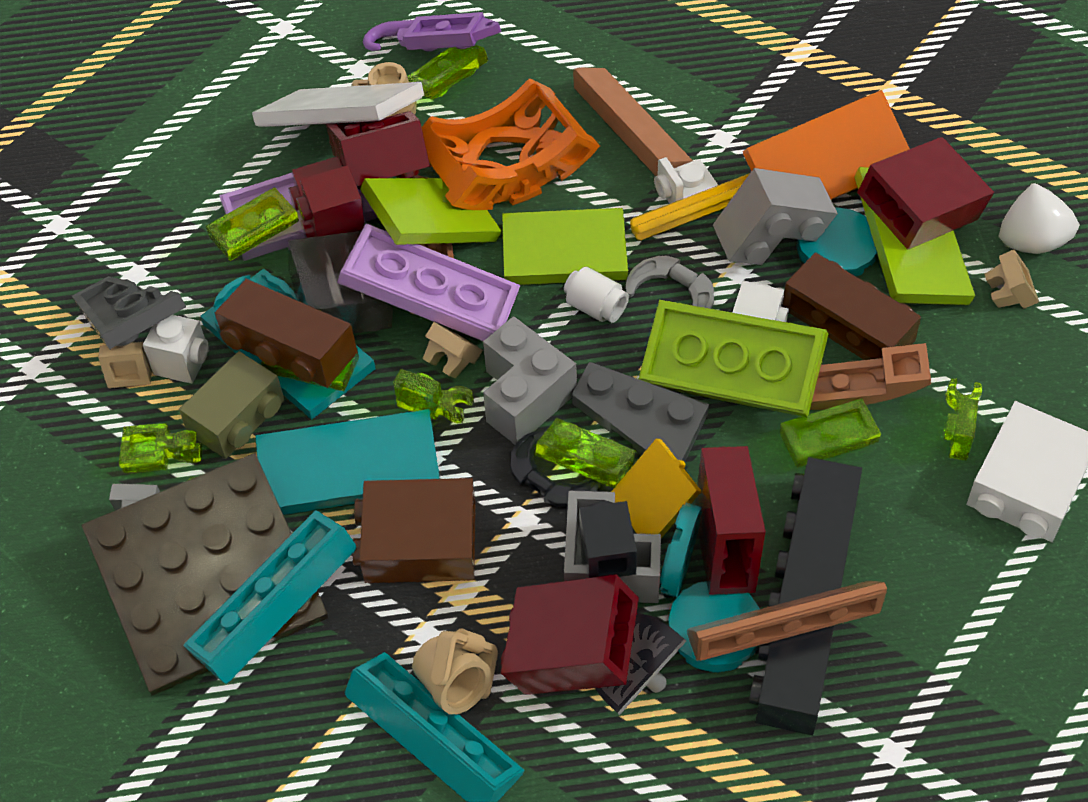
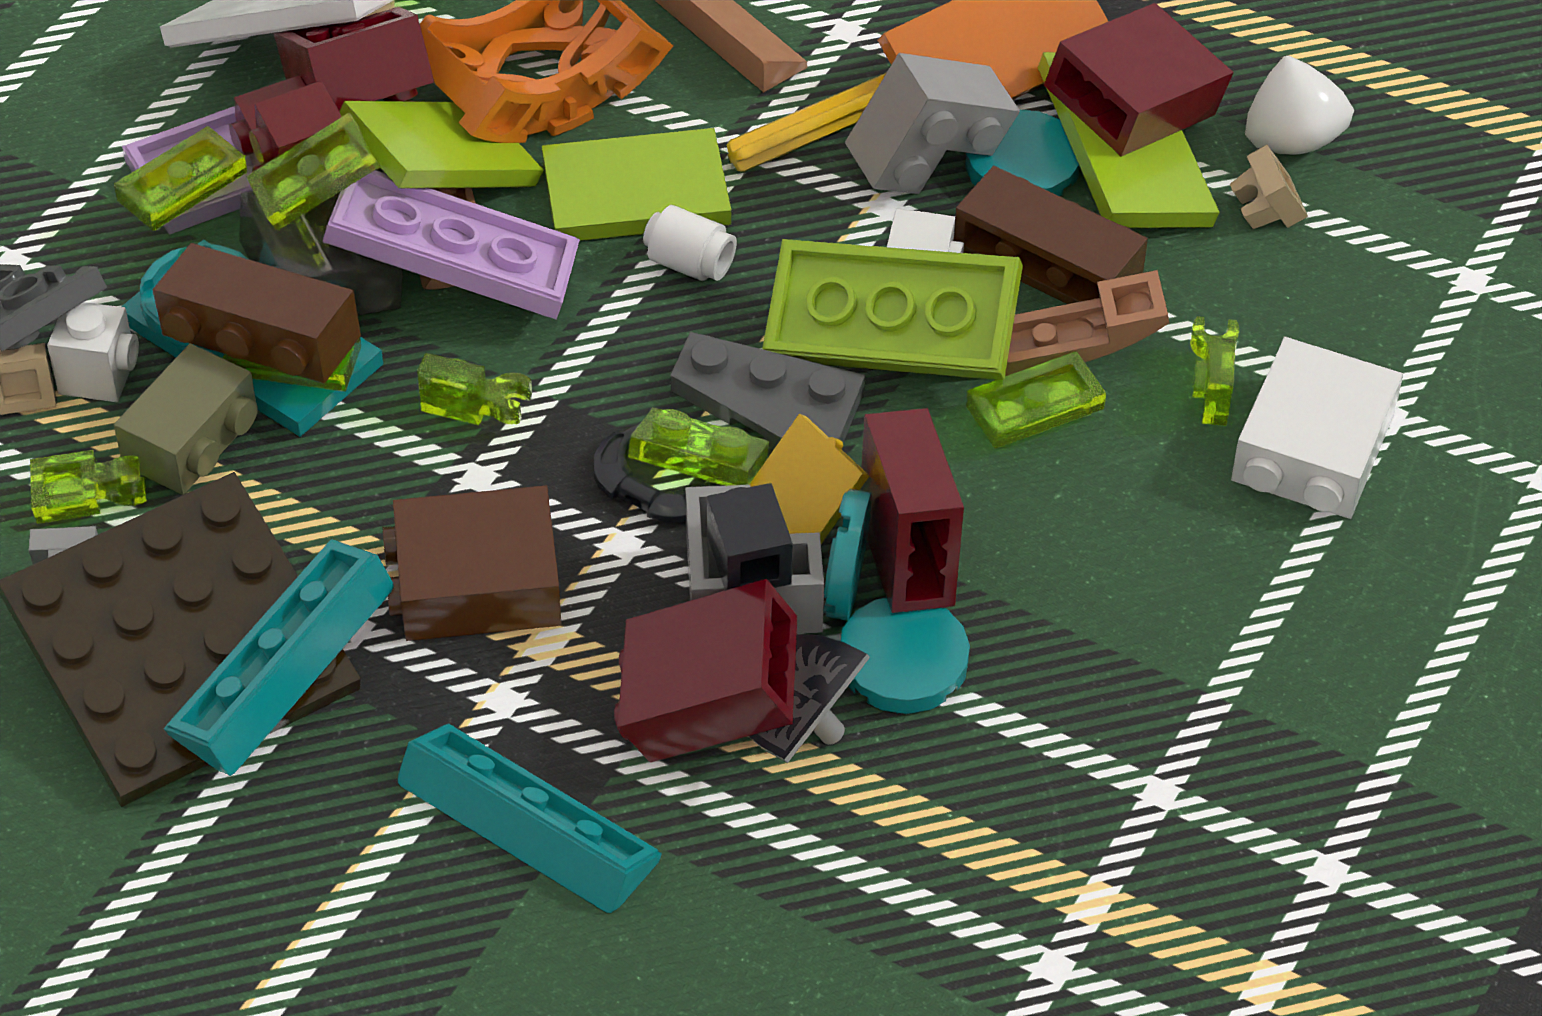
camera: 10 degrees left, 5 degrees down
(331, 461) = (349, 481): teal tile -> none
(335, 231) = (312, 171): none -> clear neon green plate
(447, 342) = (488, 319): tan tile -> none
(454, 675) = (553, 737): tan piece -> none
(530, 379) = (605, 356): light grey brick -> none
(664, 266) = (783, 202): light grey piece -> none
(683, 180) = (795, 88): white bracket -> none
(786, 619) = (1002, 625): nougat slope -> none
(815, 564) = (1028, 604): black brick -> none

